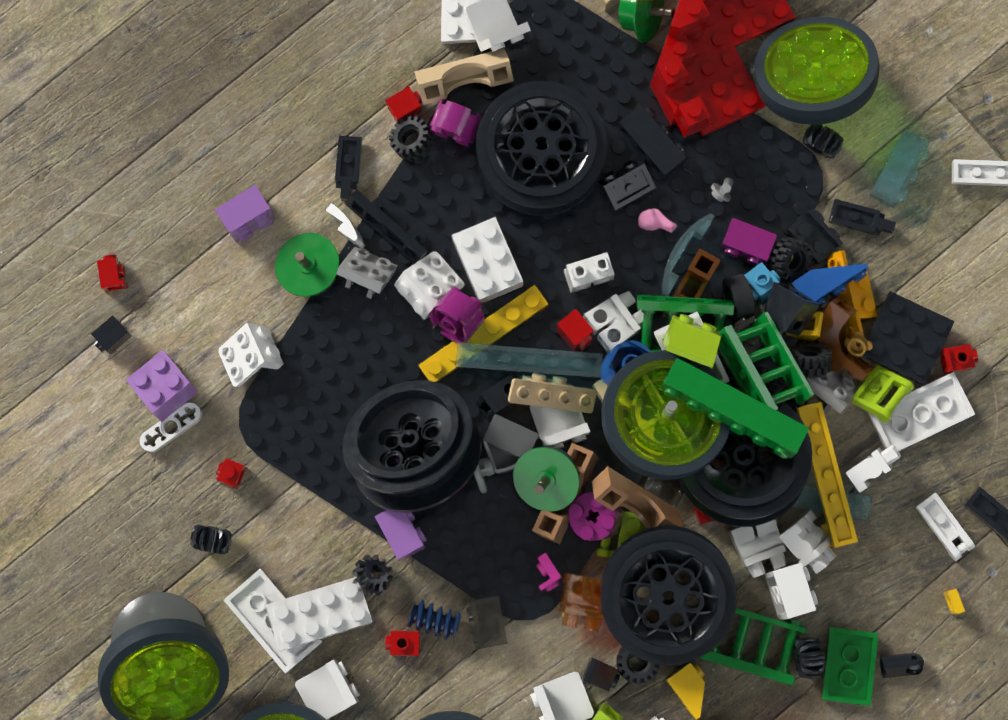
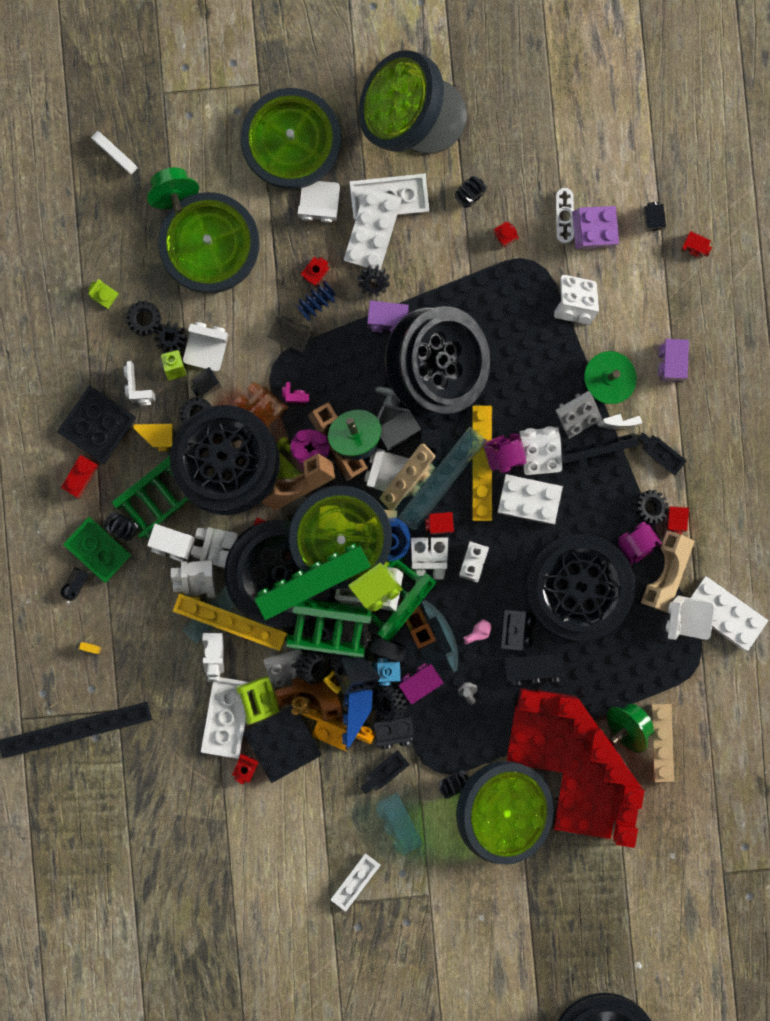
camera: 125 degrees right, 5 degrees up
(945, 526) = (142, 678): white plate -> none

